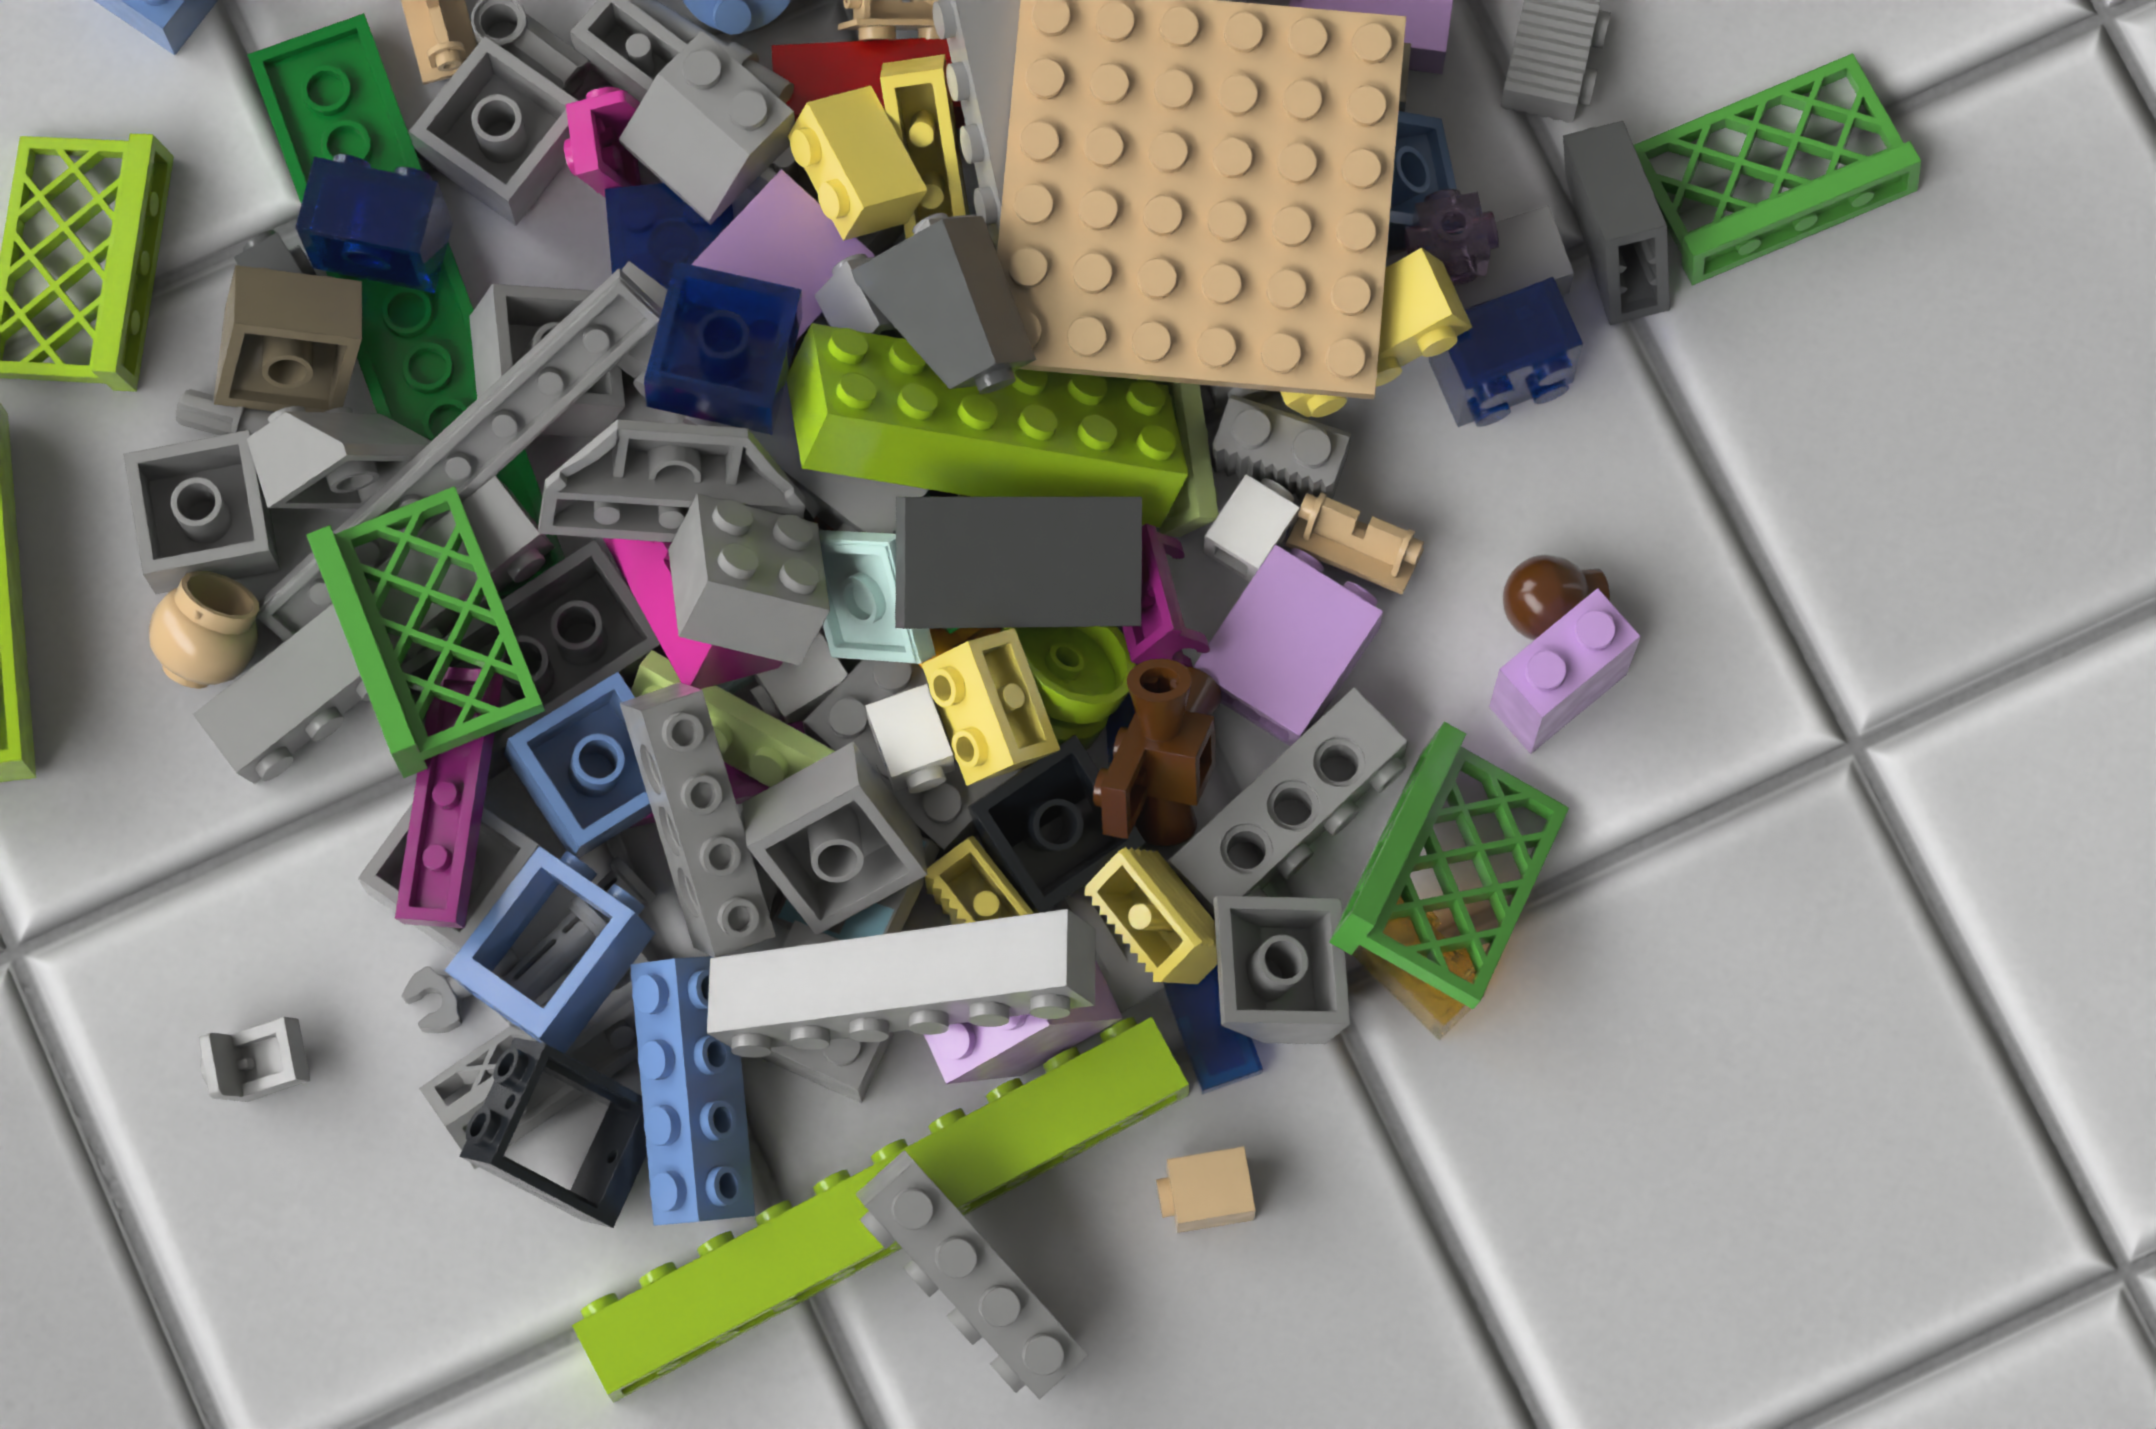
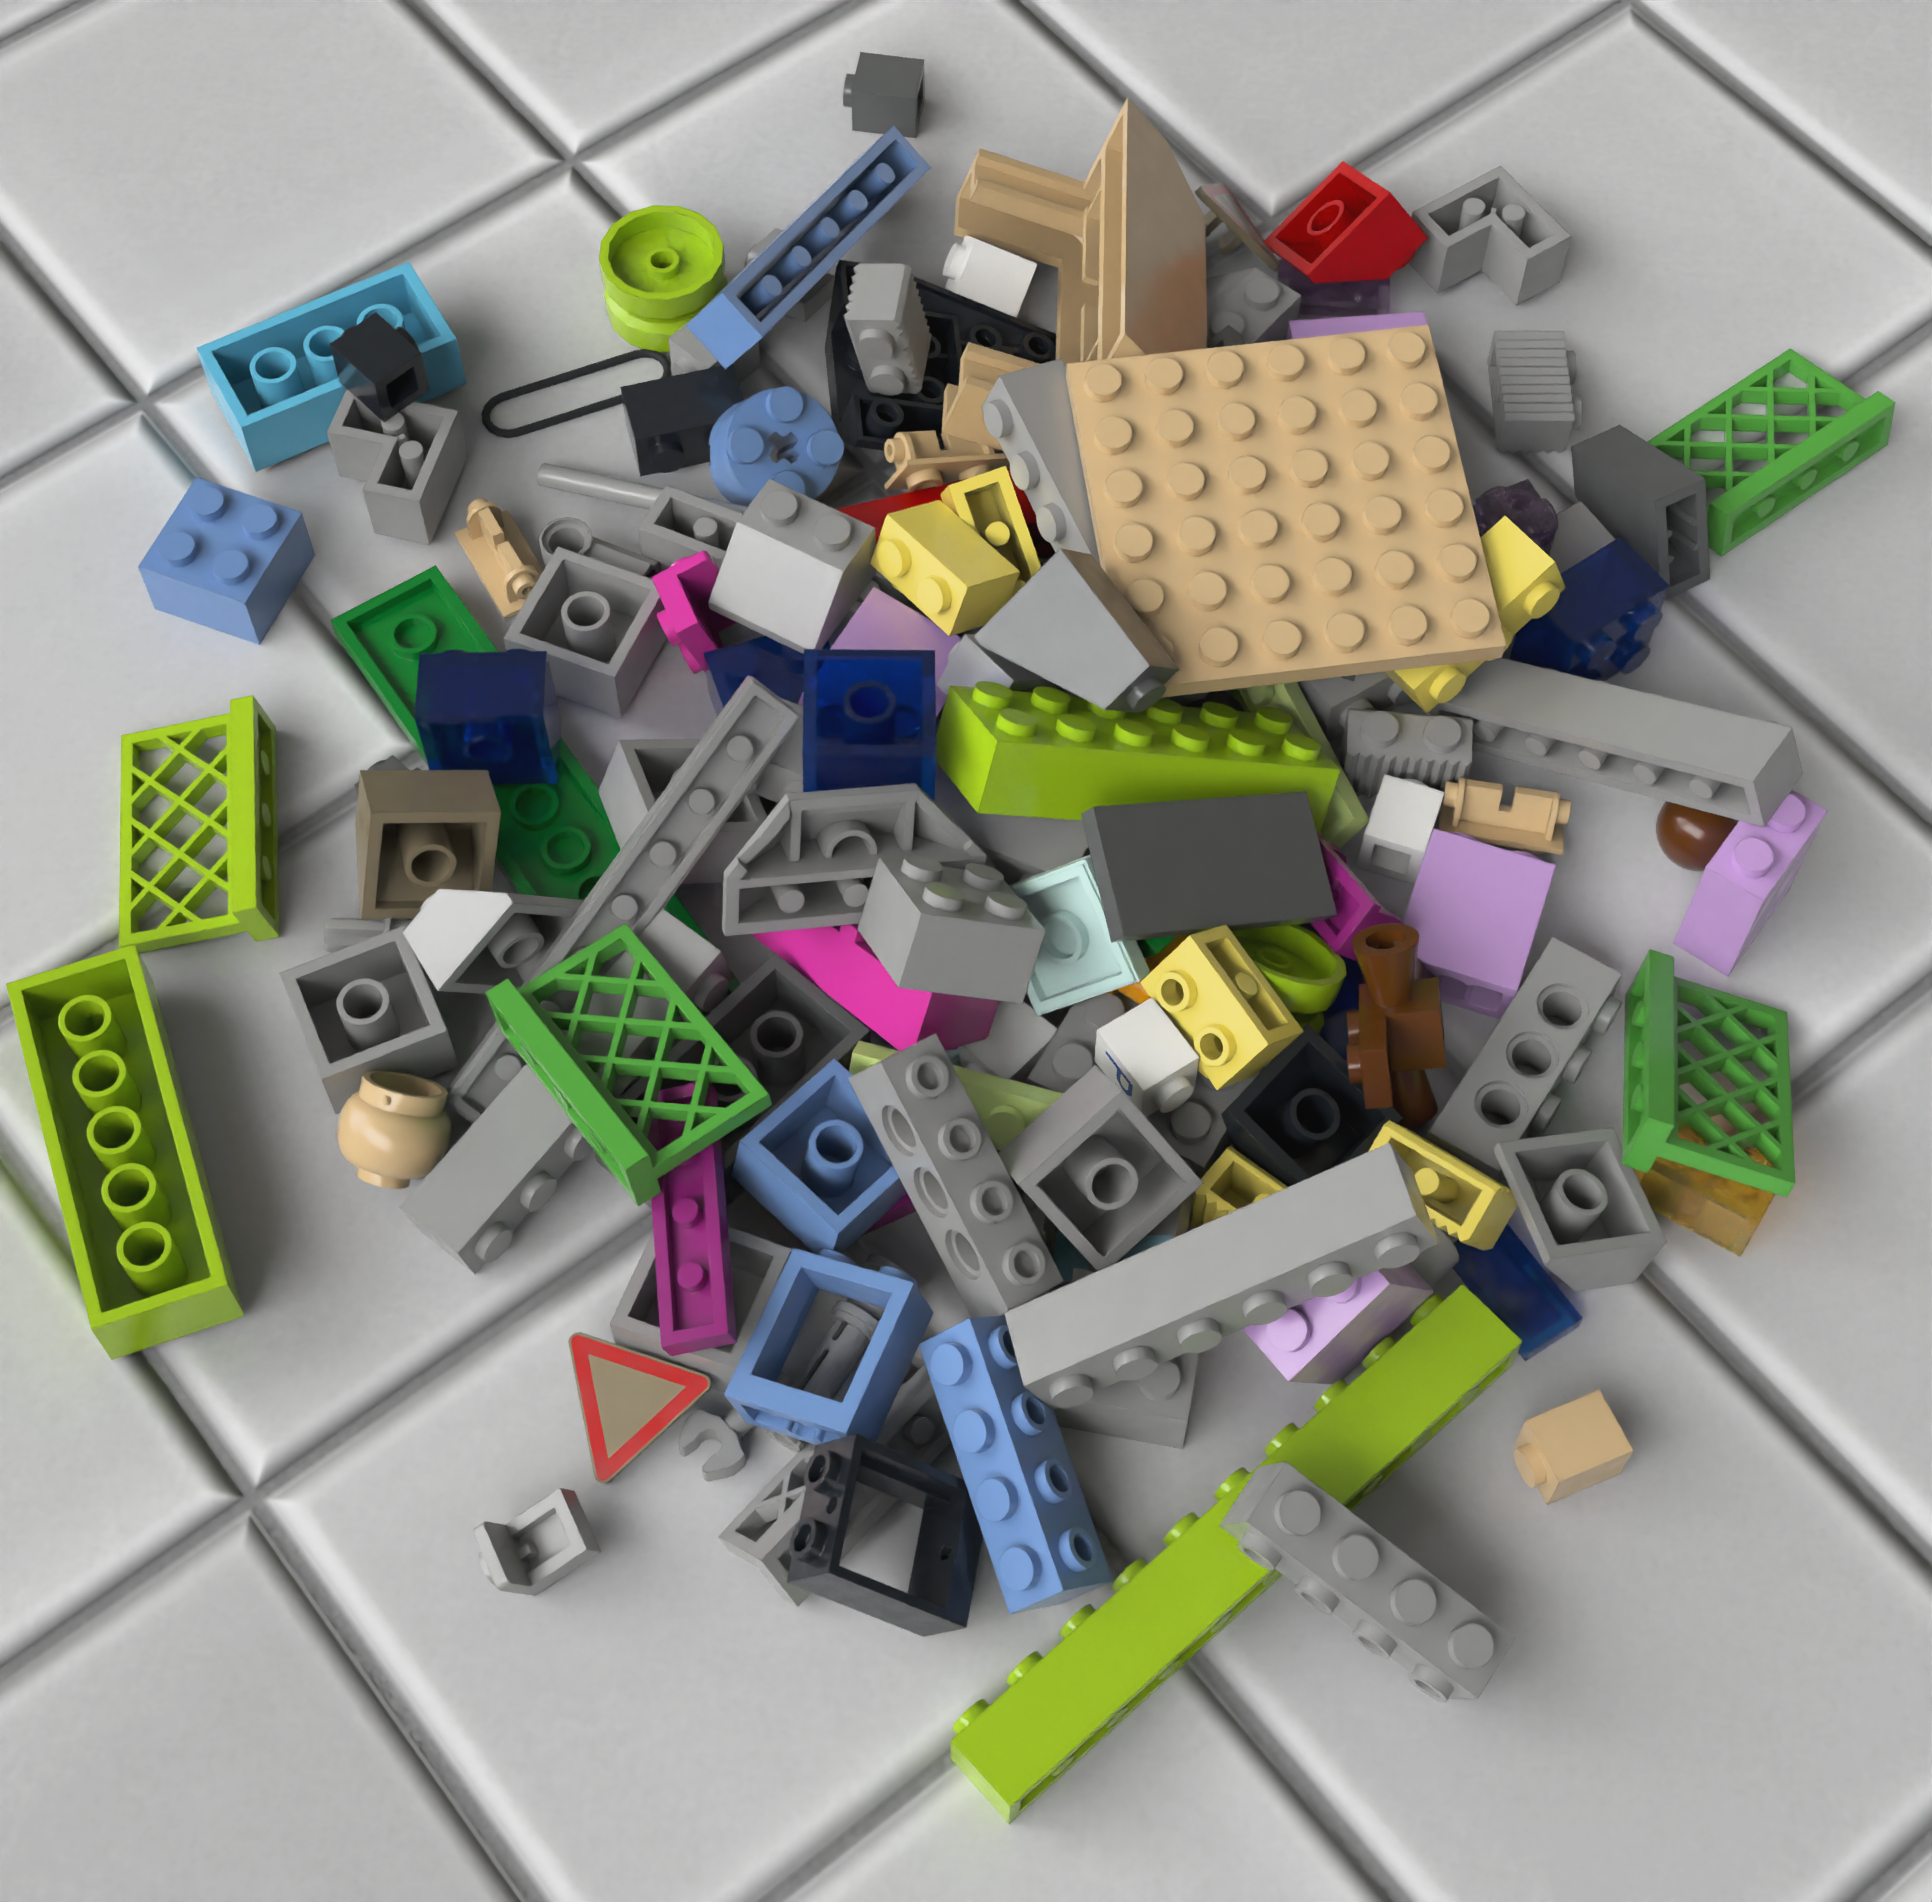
camera: 15 degrees left, 15 degrees down
(364, 944) = (628, 1399): none -> piece
(1484, 504) = (1629, 739): none -> light grey brick

